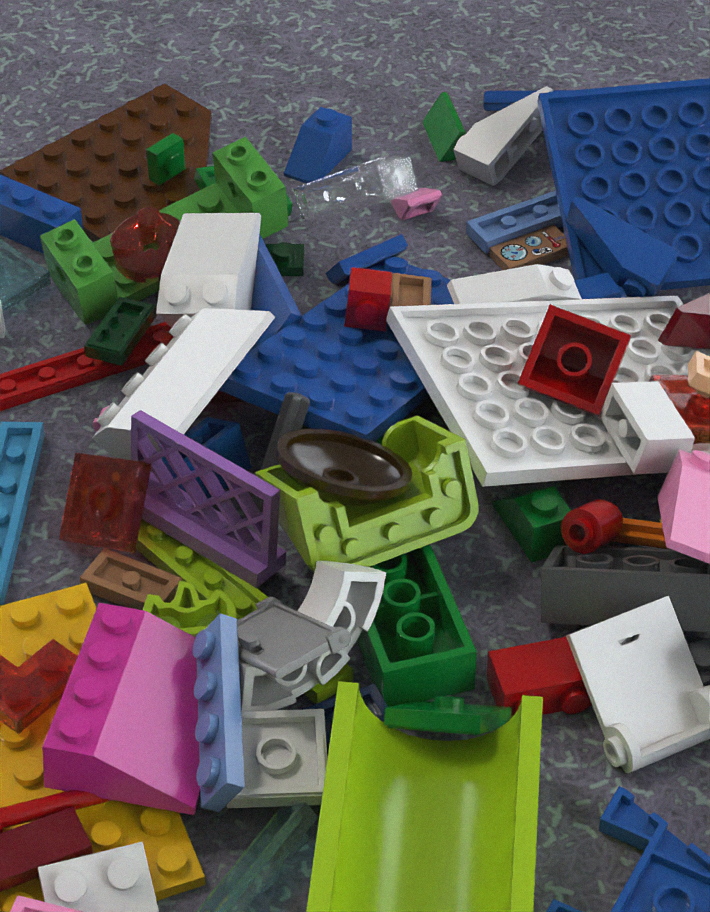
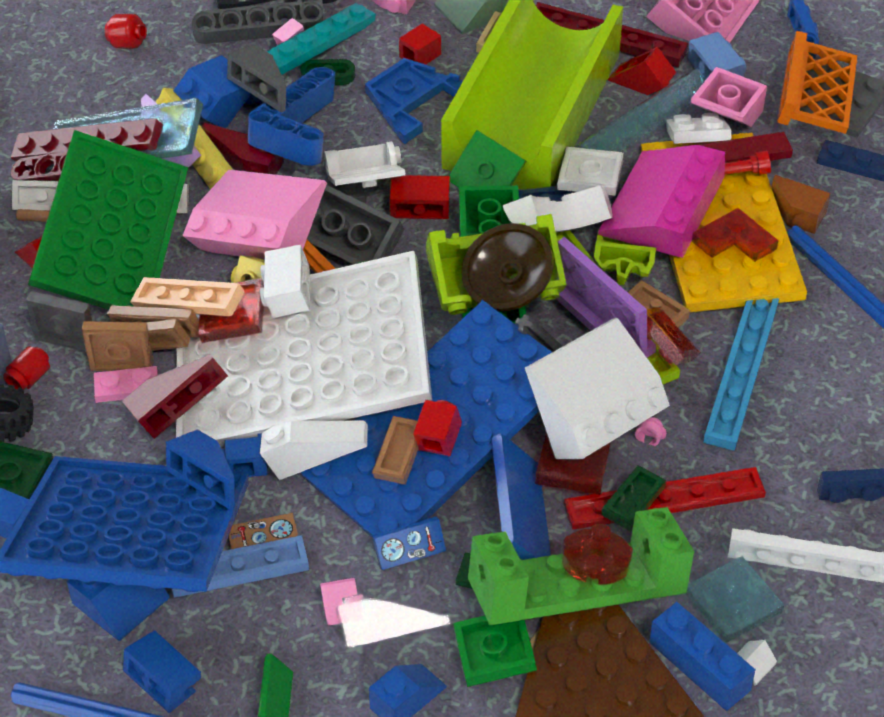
camera: 165 degrees left, 5 degrees up
(165, 159) = (561, 673): green plate -> none
(210, 265) = (555, 493): white slope -> none
(219, 713) = (619, 180): medium blue plate -> none
(285, 639) = (572, 201): light grey door -> none
(500, 140) = (229, 643): white slope -> none
(574, 360) = (308, 333): red slope -> none
(591, 526) = (350, 250): red brick -> none

